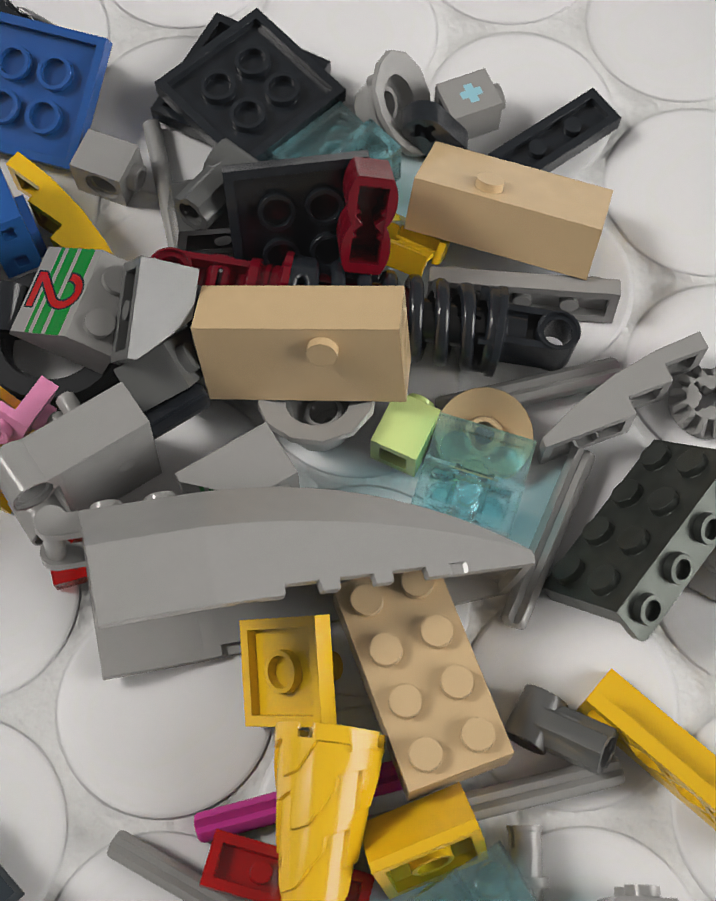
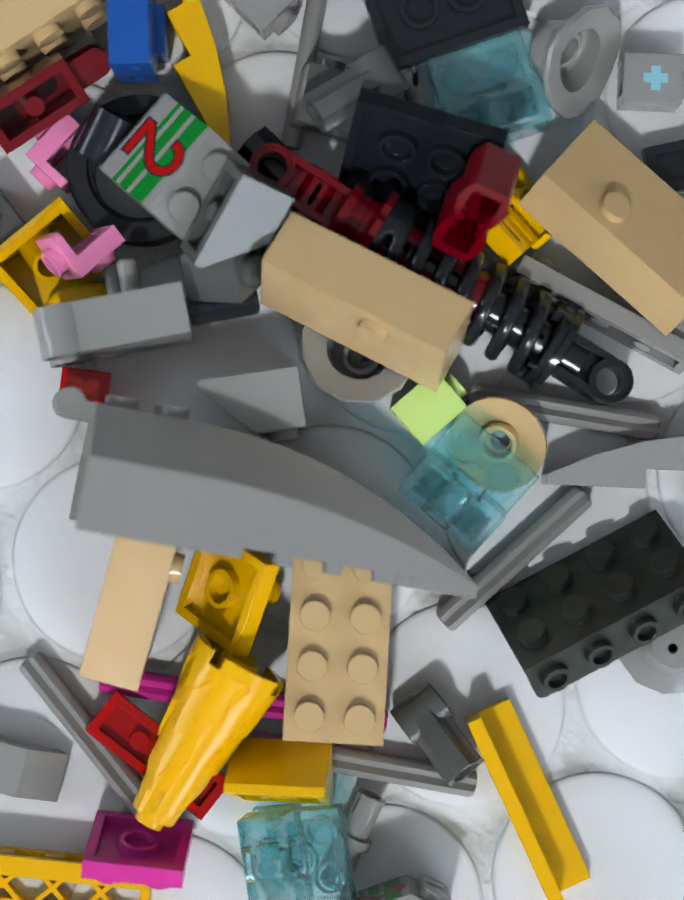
camera: 20 degrees right, 20 degrees up
(193, 710) = (129, 611): none -> tan brick
(430, 122) = (600, 103): black beam -> none

